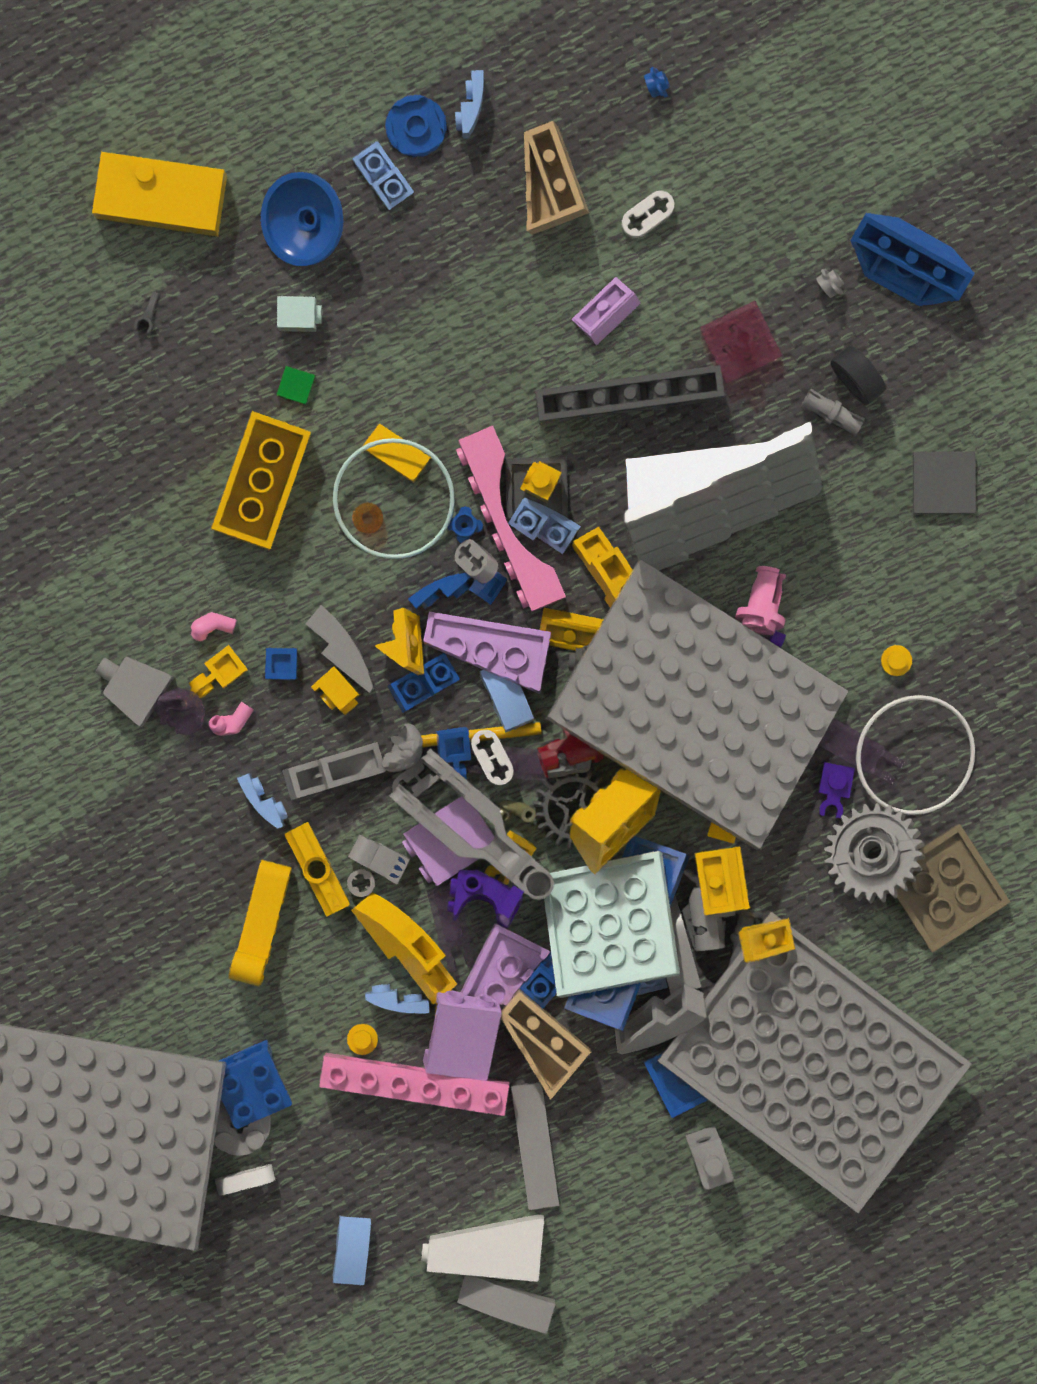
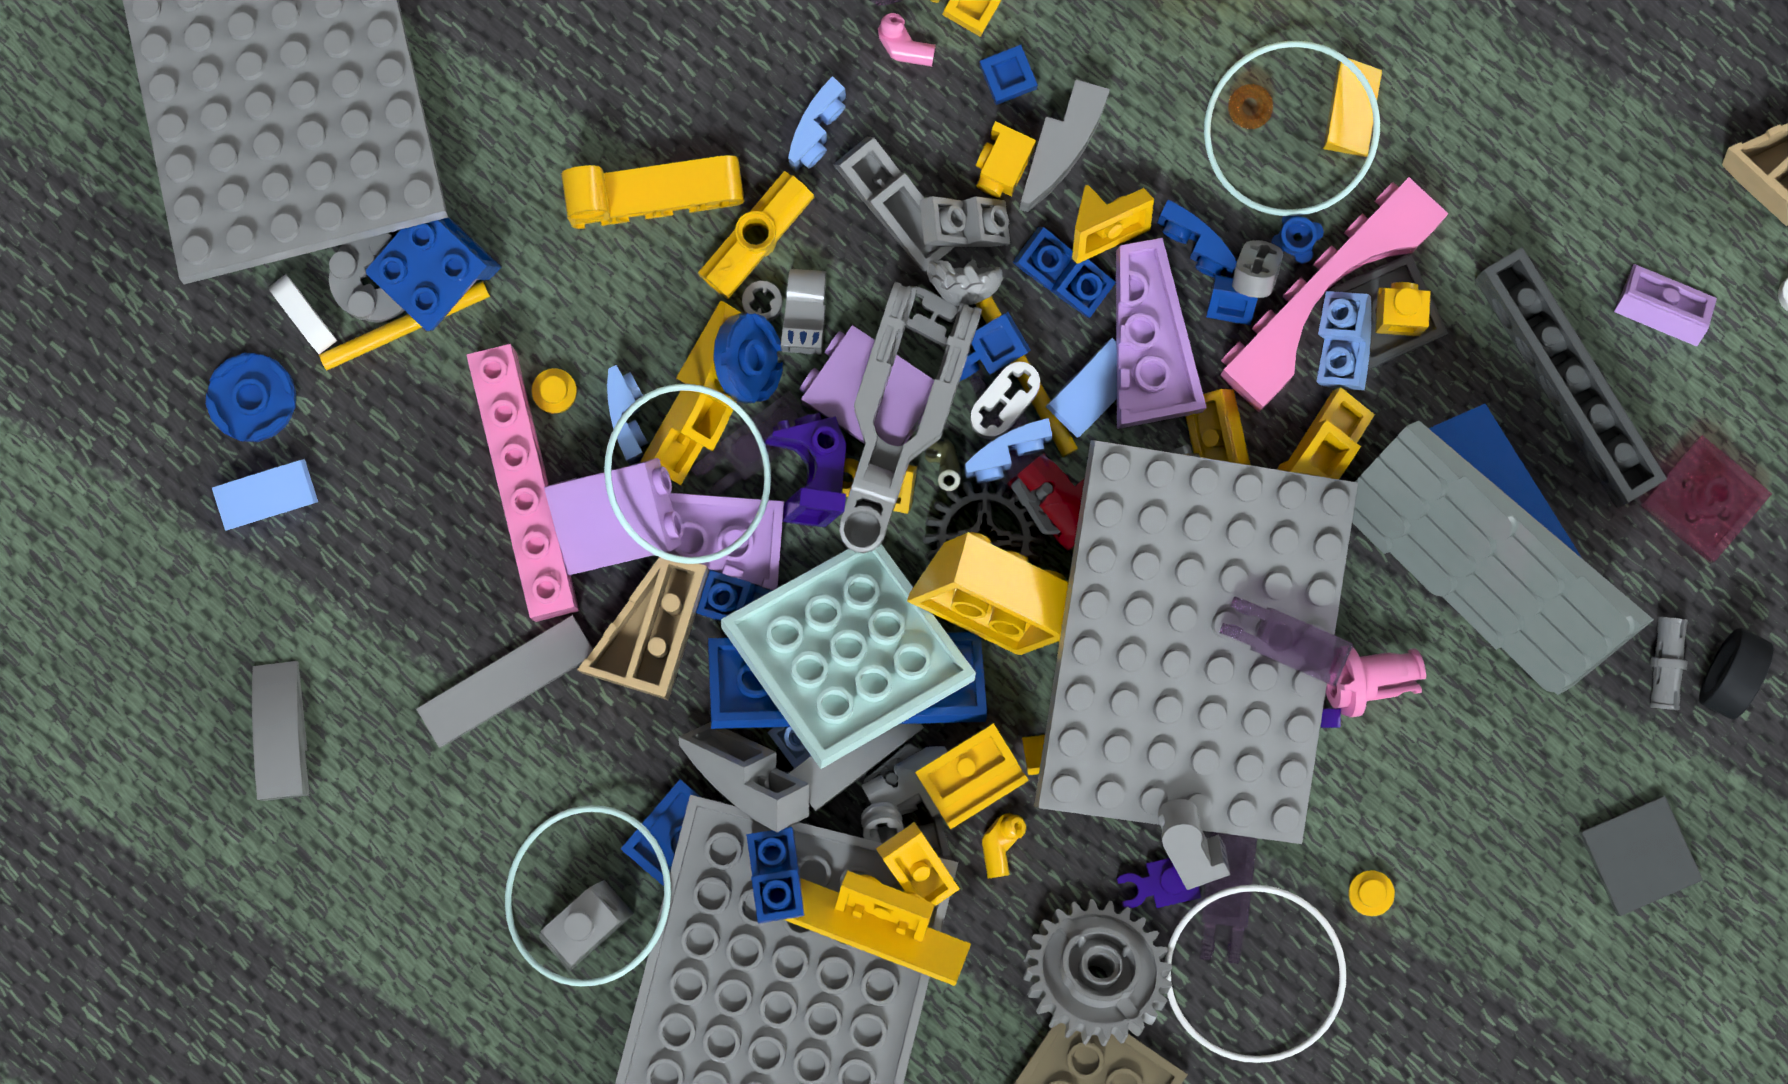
camera: 70 degrees right, 5 degrees down
(279, 1130) = (392, 331): none -> yellow bar
(290, 1227) = (260, 409): none -> blue tile
(366, 733) = (965, 222): none -> light grey slope
(396, 908) = (747, 358): none -> blue tile
(440, 1031) = (609, 486): none -> light aqua piece
(492, 1250) = (341, 683): white slope -> none
(527, 780) = (995, 457): none -> light blue slope
(718, 1103) = (664, 914): none -> light aqua piece
(720, 947) = (881, 813): none -> light grey bush
(724, 646) = (1291, 642): none -> clear purple hinge
(733, 1030) = (775, 875): none -> blue slope
(765, 878) = (998, 840): none -> yellow arm
(789, 978) = (883, 924): none -> yellow bracket
(823, 764) = (1192, 854): none -> light grey leg

